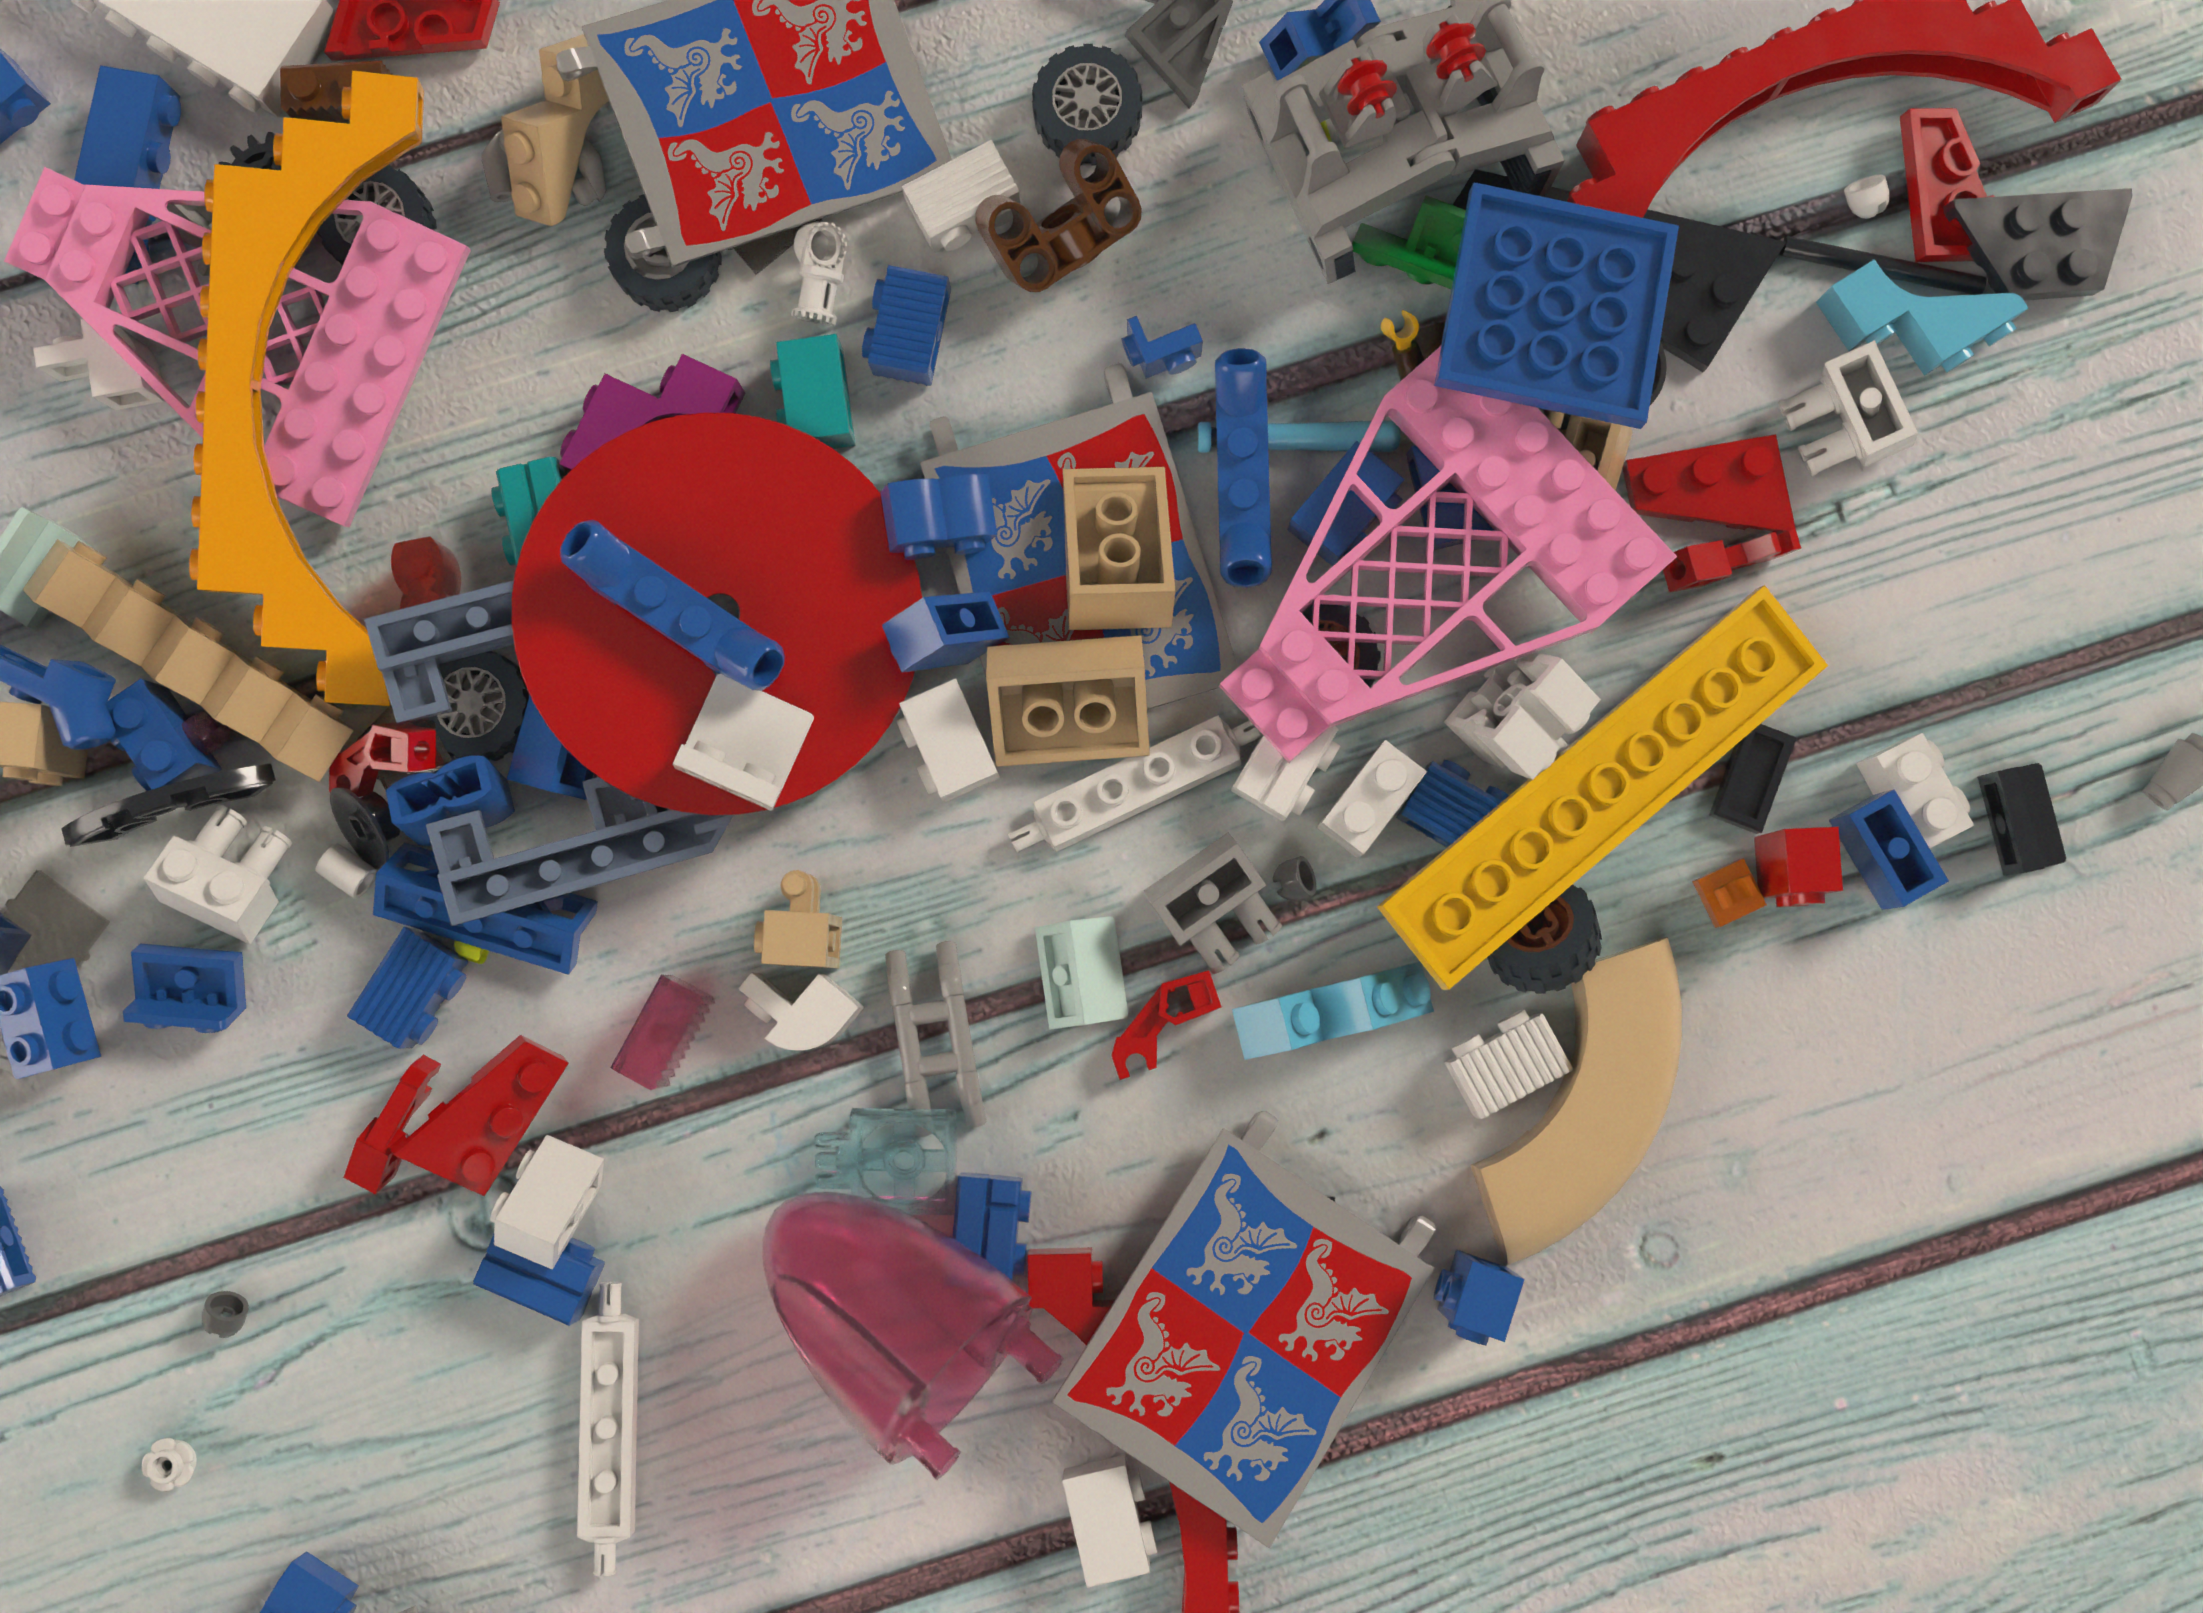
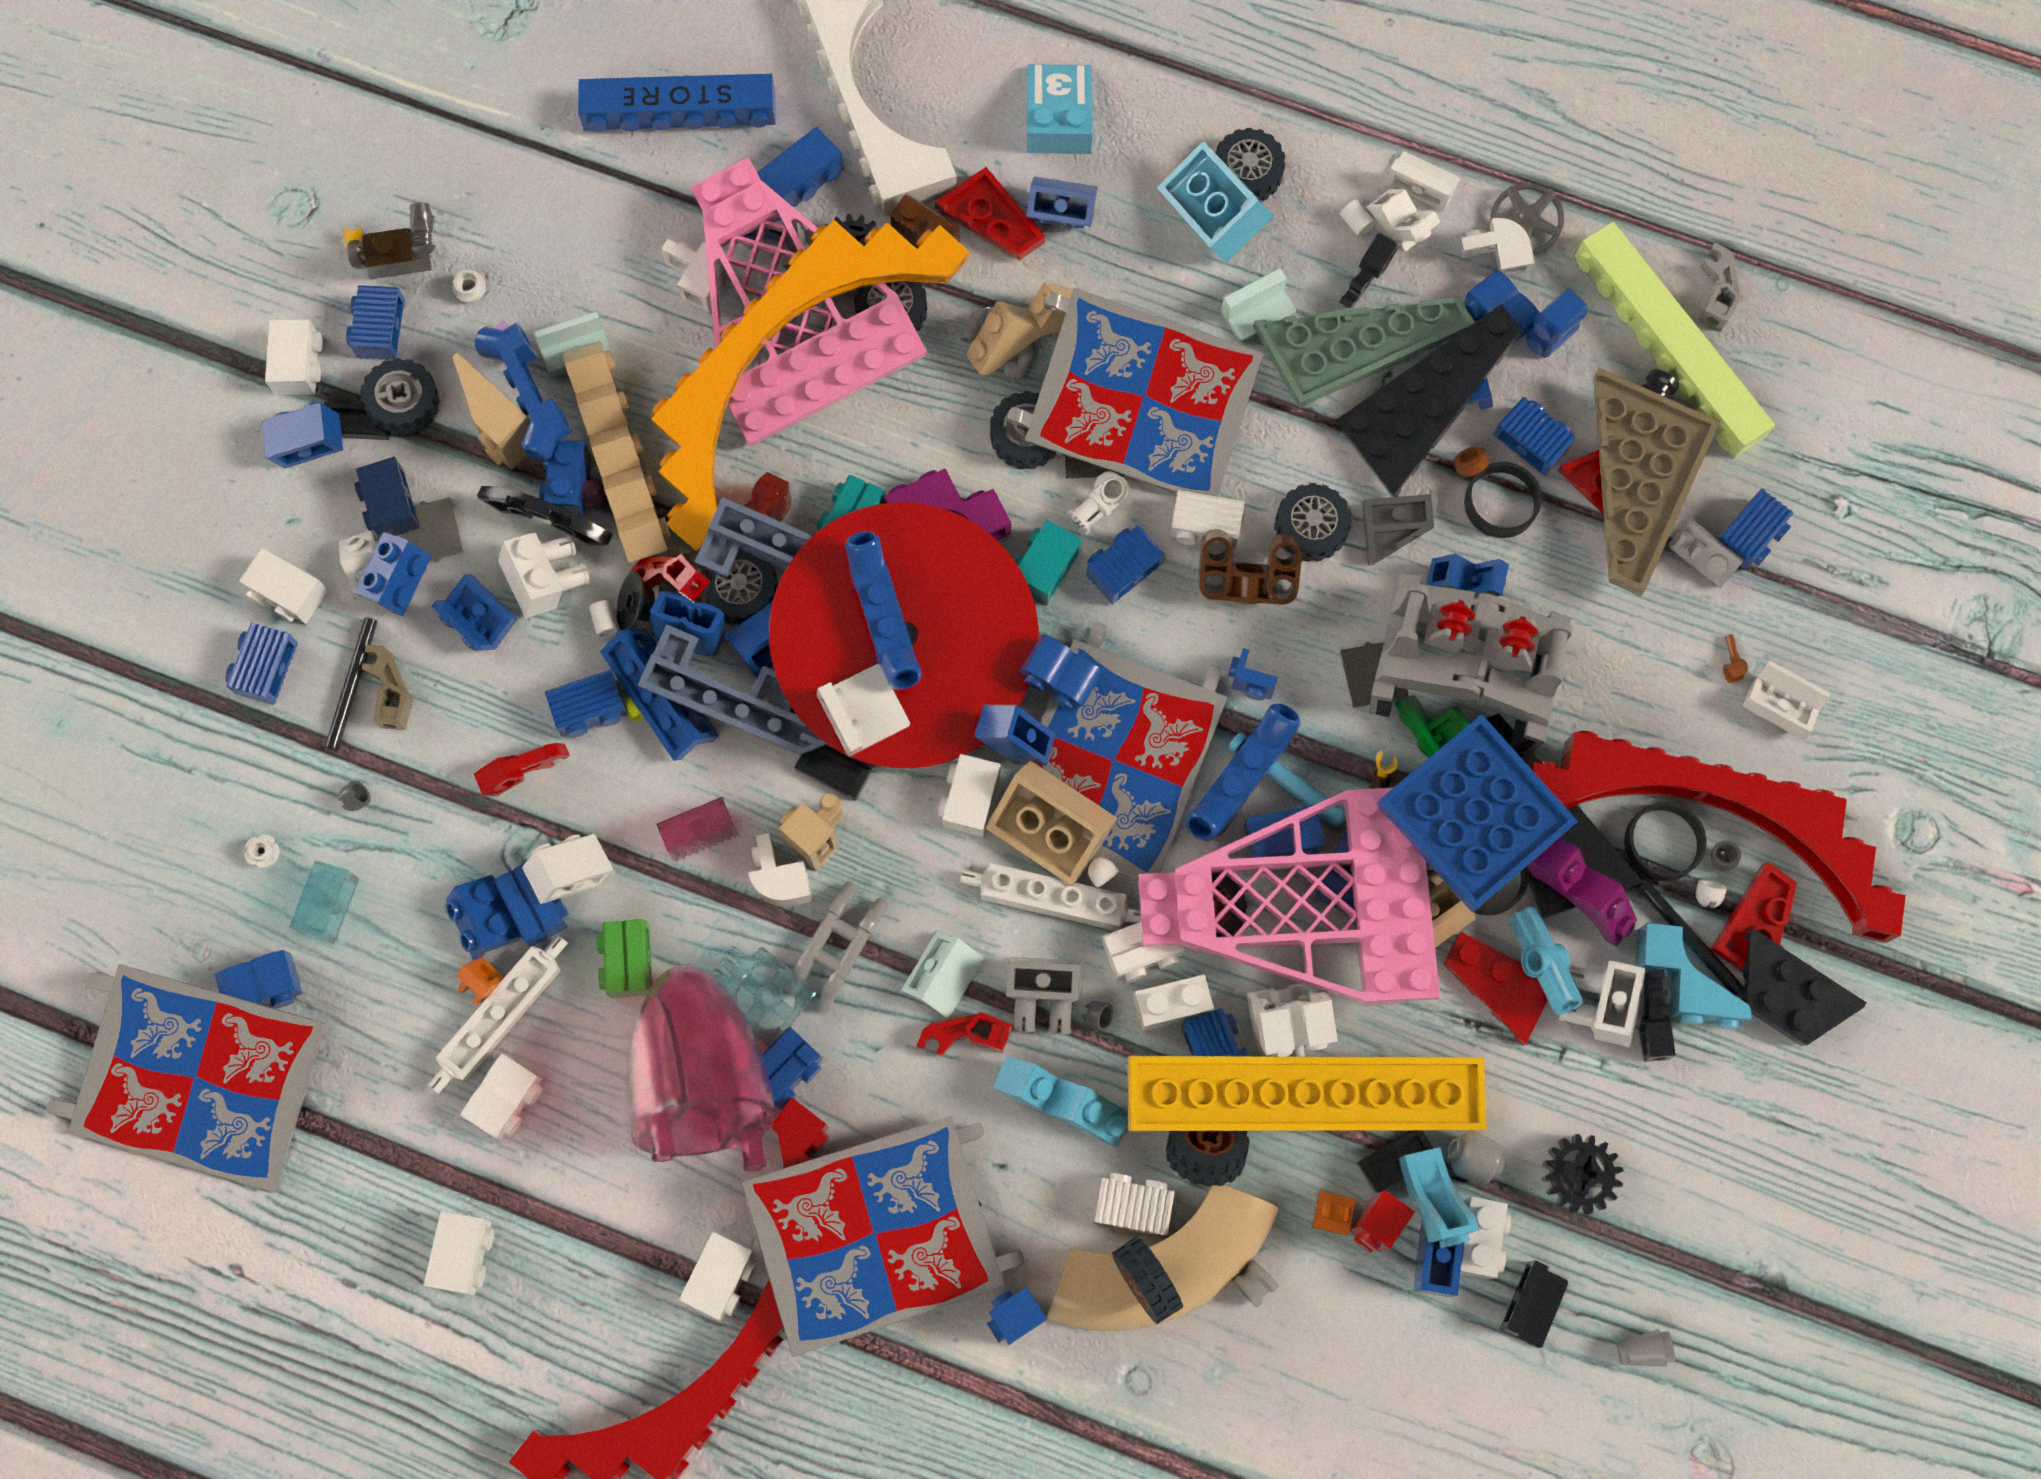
camera: 30 degrees right, 10 degrees down
(107, 1184) = (351, 684): none -> black bar
(157, 1145) = (393, 684): none -> dark tan piece
(294, 1467) = (324, 902): none -> clear light blue brick
(487, 1119) = (567, 802): red wing -> none
(493, 1334) = (481, 917): none -> blue bracket
(552, 1405) = (480, 978): none -> orange tile
(693, 1518) = (502, 1097): none -> white brick
(703, 1247) = (626, 958): none -> bright green brick
(767, 836) = (834, 771): none -> black tile
(1118, 548) = (1141, 763): tan slope -> none
(1170, 711) = (1101, 871): none -> white hinge
(1280, 241) = (1360, 672): none -> clear smoke piece
(1605, 1146) = (1147, 1279): none -> black wheel
(1707, 1042) = (1255, 1283): none -> light grey wheel
(1711, 562) = (1463, 1022): red piece -> none
(1745, 298) = (1590, 891): none -> magenta arch
(1751, 419) = (1545, 961): none -> medium azure piece
(1802, 134) = (1689, 817): none -> black tyre
(1841, 706) = (1476, 1158): none -> light grey head
(1860, 133) = (1732, 856): none -> dark grey hinge
(1863, 799) = (1441, 1207): none -> medium azure arch
(1929, 401) = (1655, 1027): none -> black piece
(1960, 609) = (1567, 1170): none -> black gear

